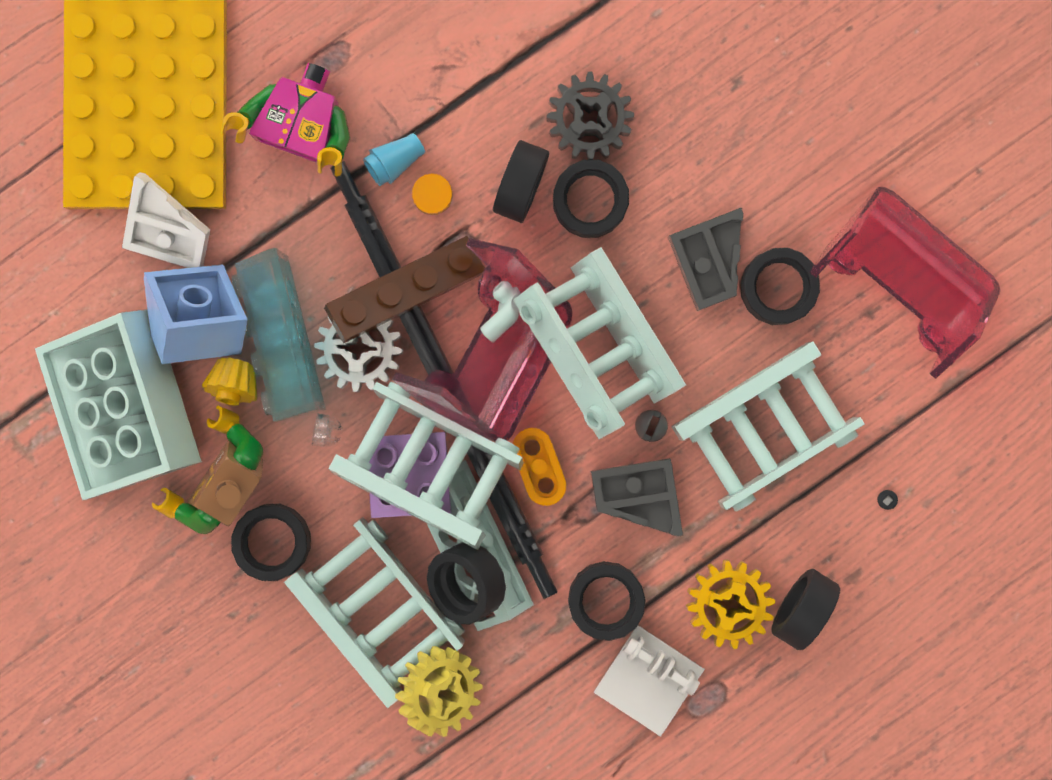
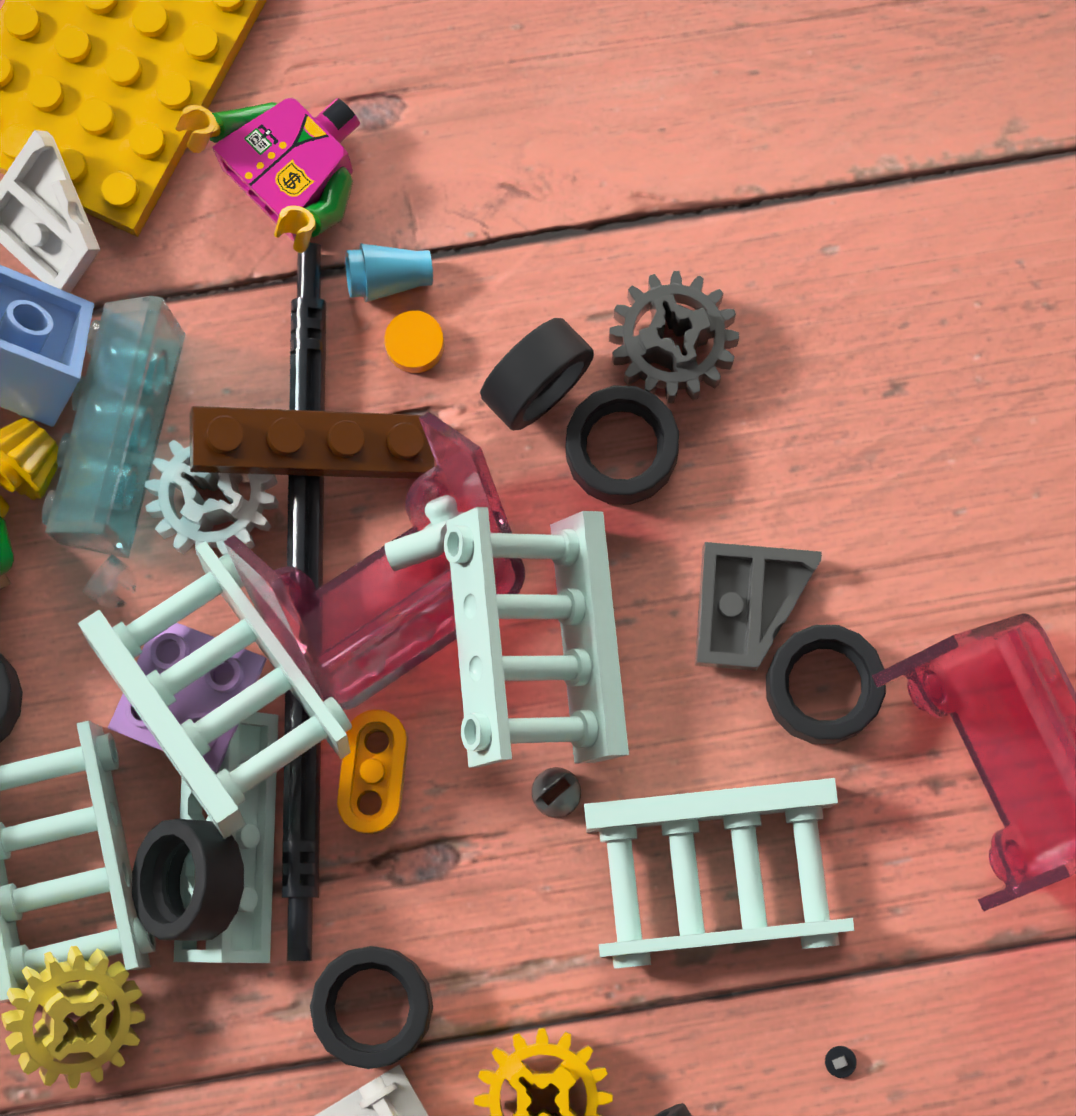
camera: 30 degrees right, 10 degrees down
(639, 494) = (492, 879): dark grey wing -> none

